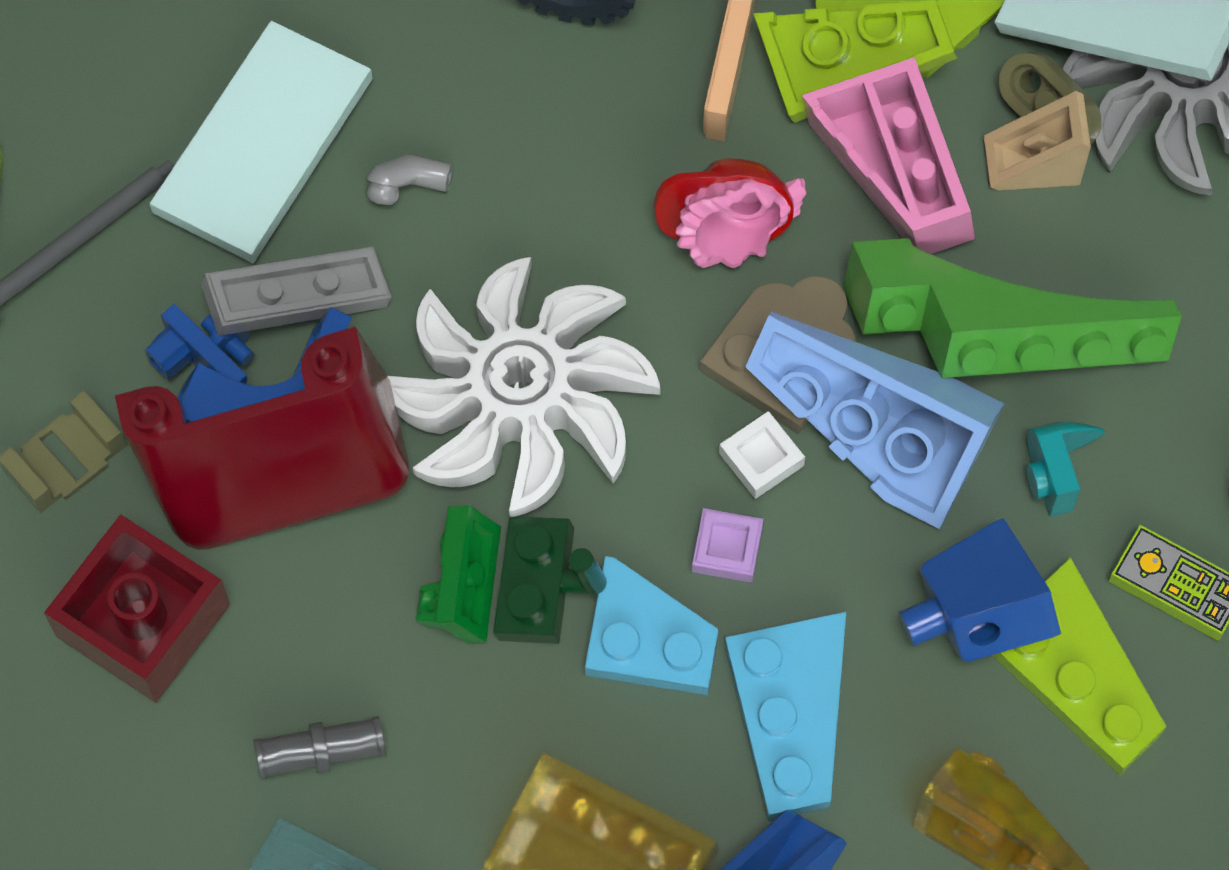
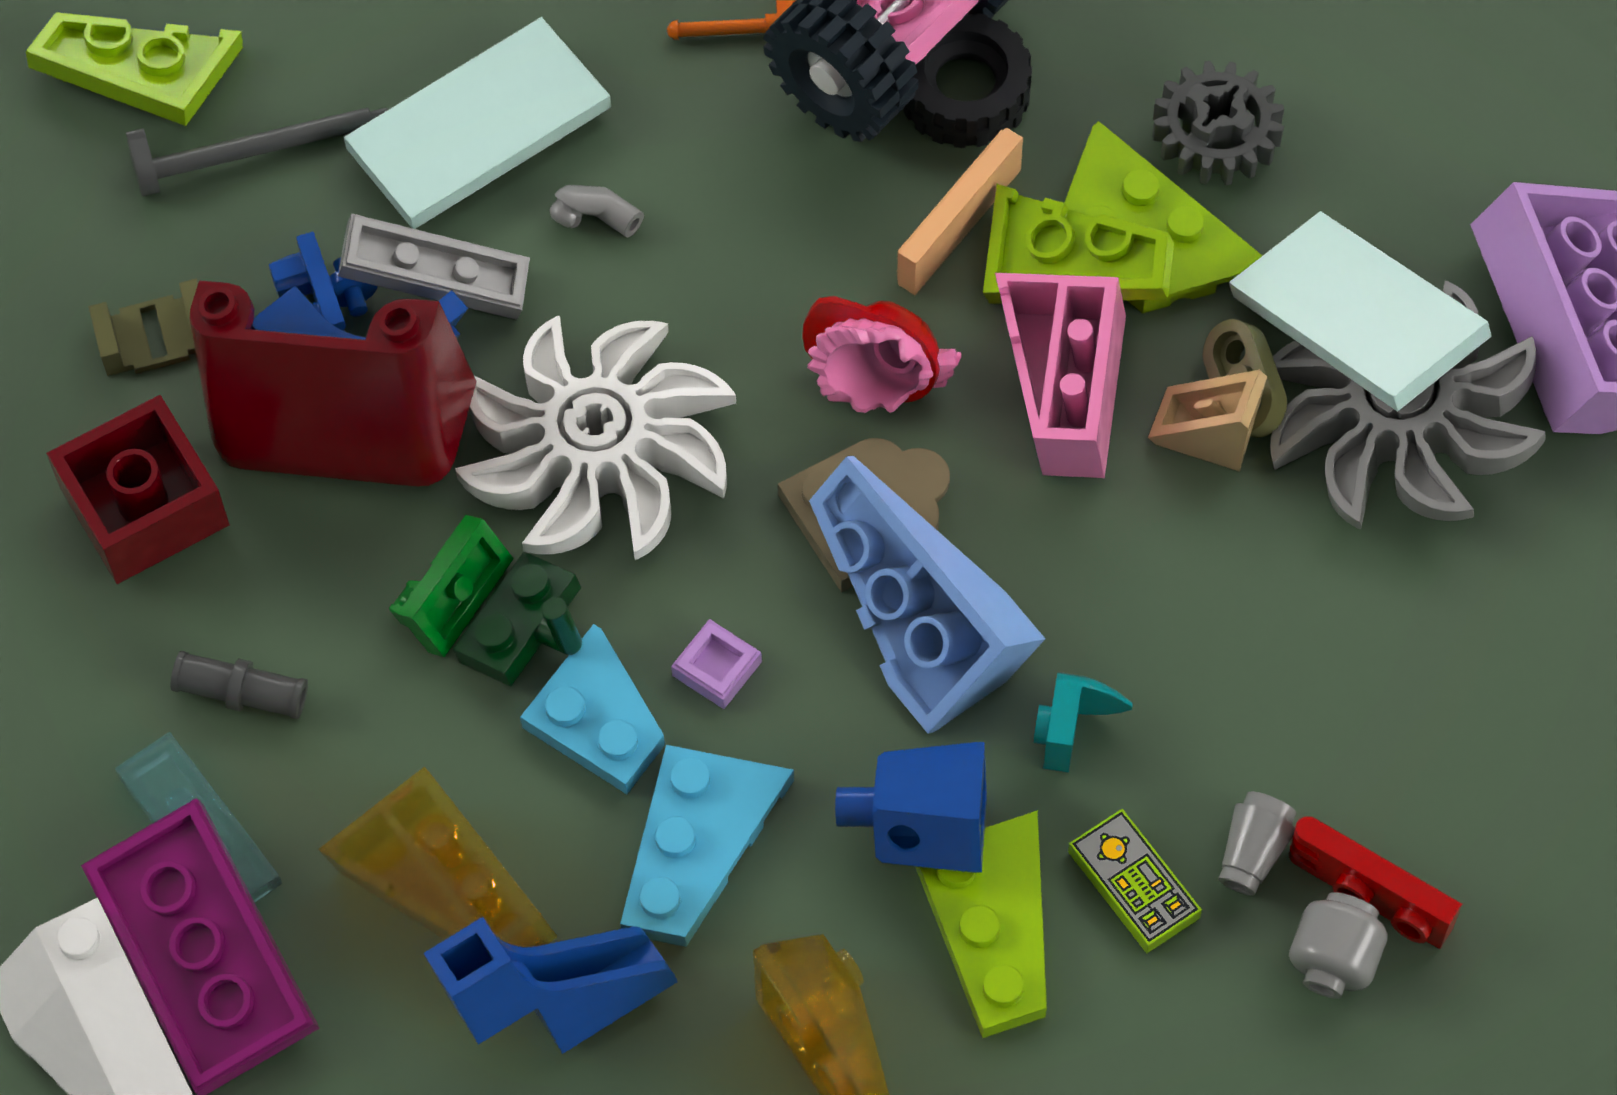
camera: 25 degrees right, 5 degrees down
(761, 455) = (790, 592): white plate -> none
(997, 326) = (1080, 566): bright green arch -> none

